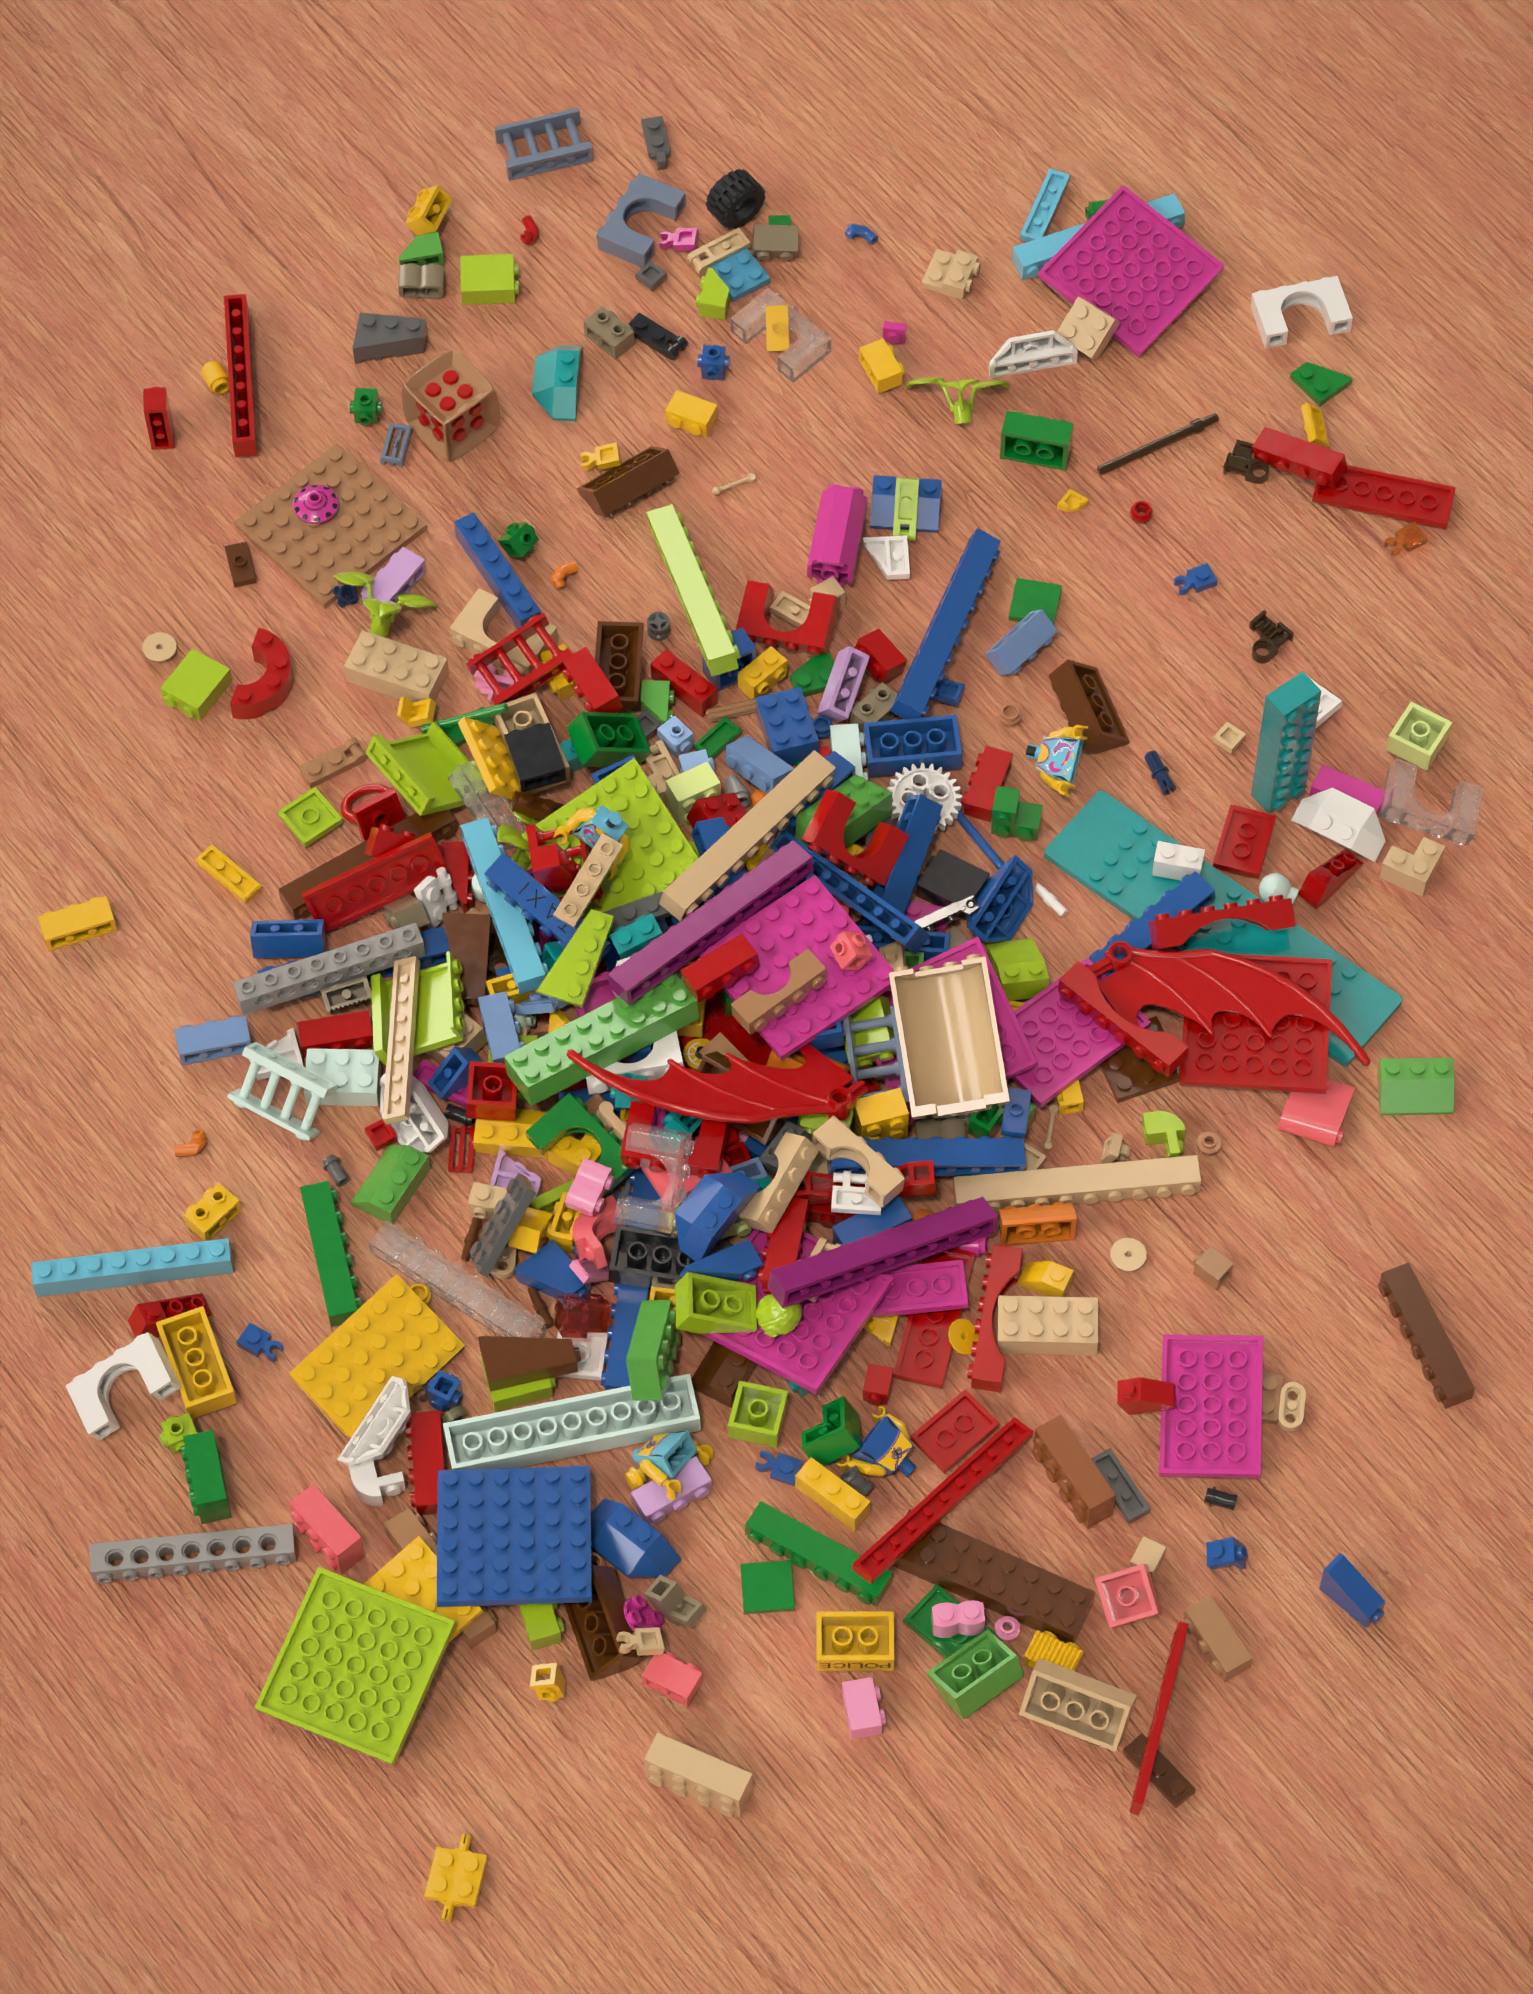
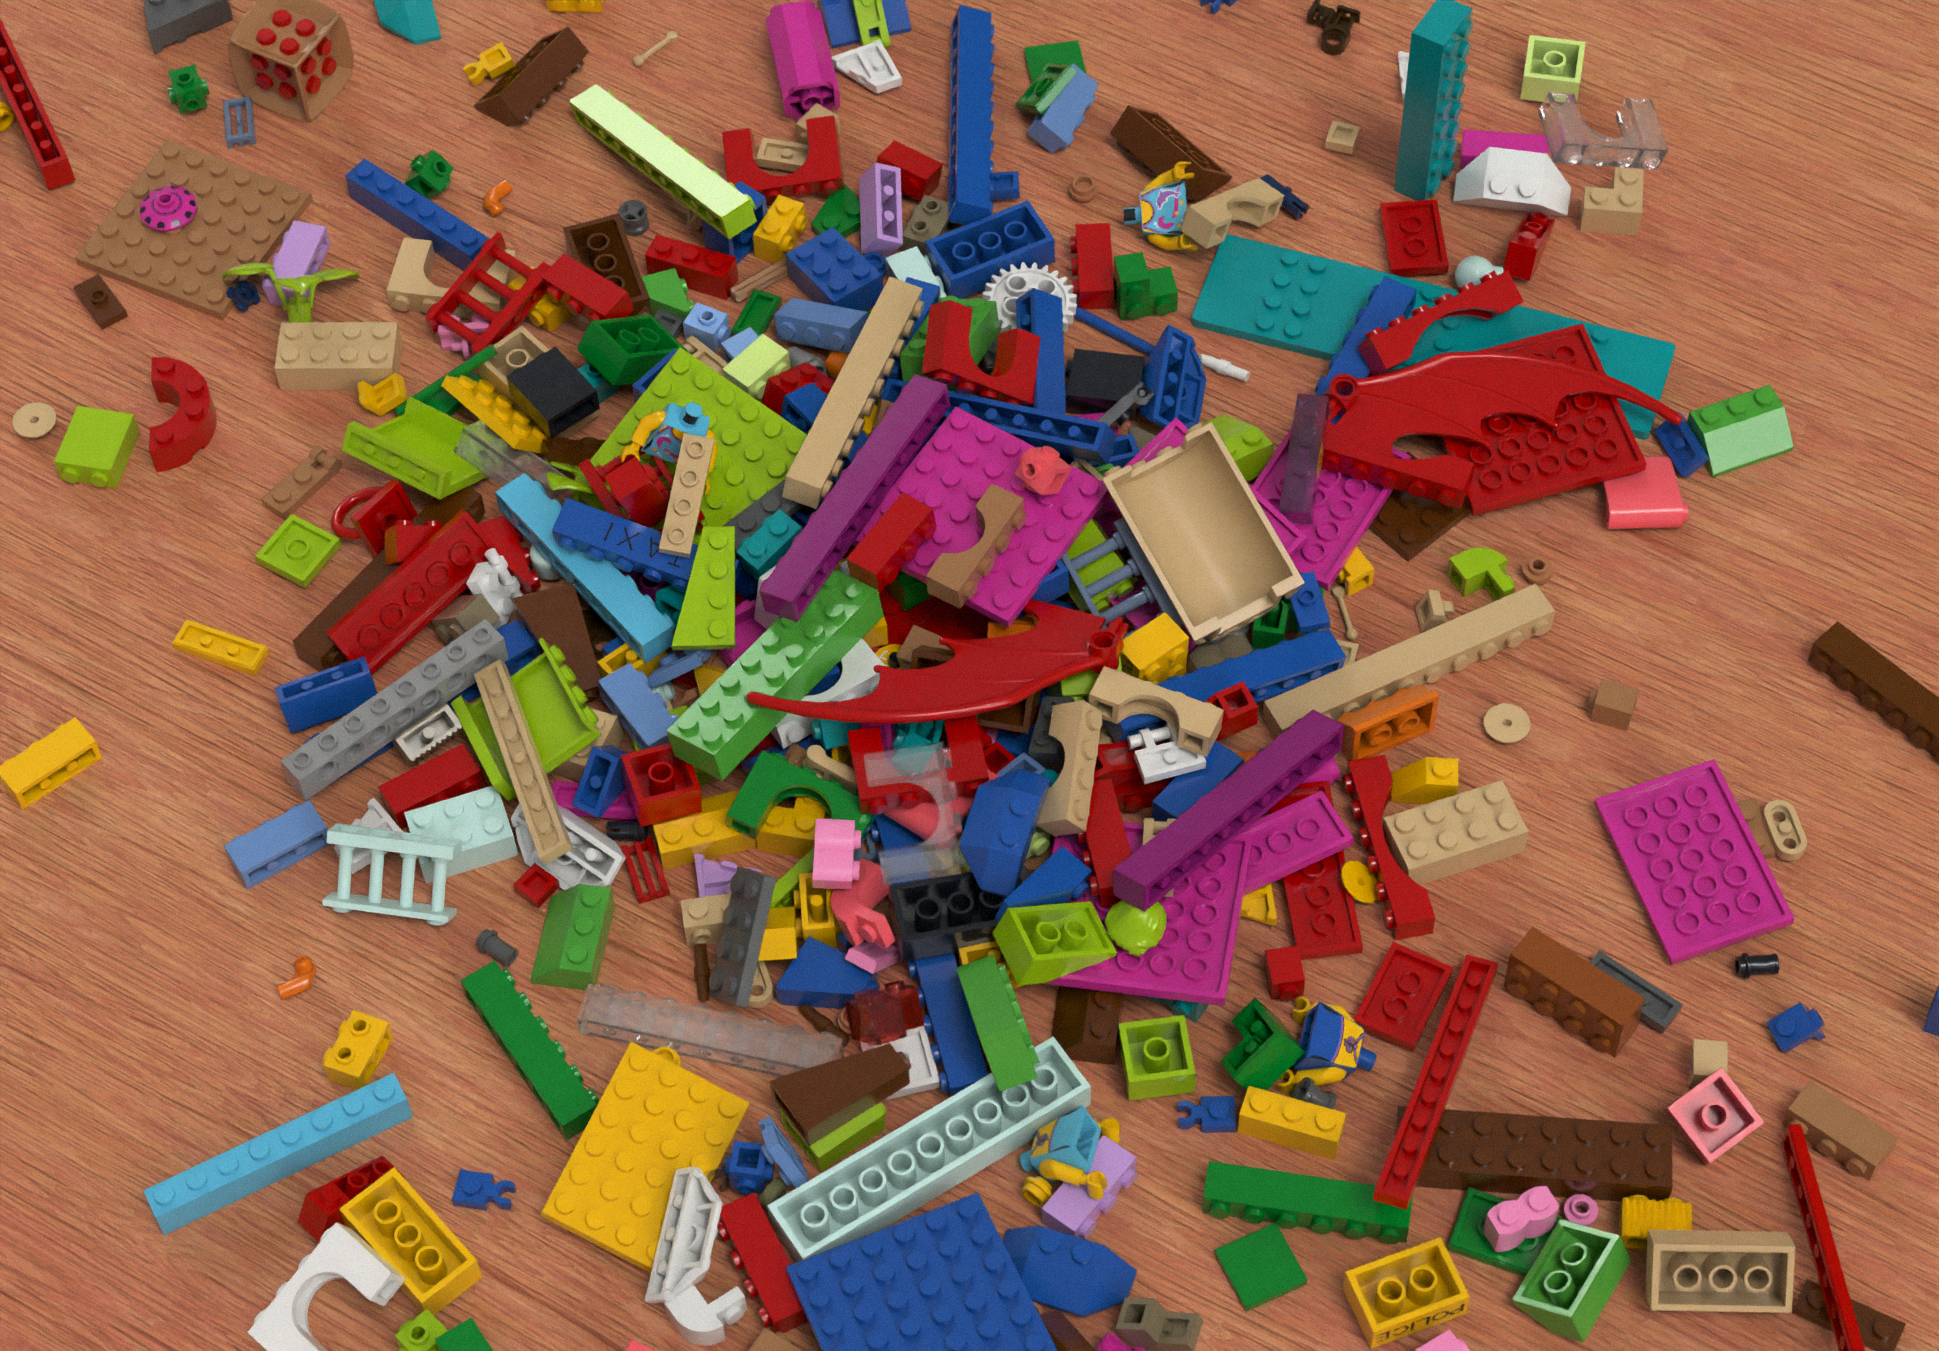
camera: 20 degrees left, 5 degrees down
(469, 1391) = (780, 1150): none -> medium blue plate
(1013, 622) = (1045, 88): none -> green tile
(1061, 1001) = (1305, 458): none -> clear purple brick
(1130, 771) = (1250, 202): none -> tan arch
(1145, 1395) = (1612, 874): red slope -> none
(1176, 860) = (1353, 276): white brick -> none
(1366, 1083) = (1682, 446): none -> blue plate

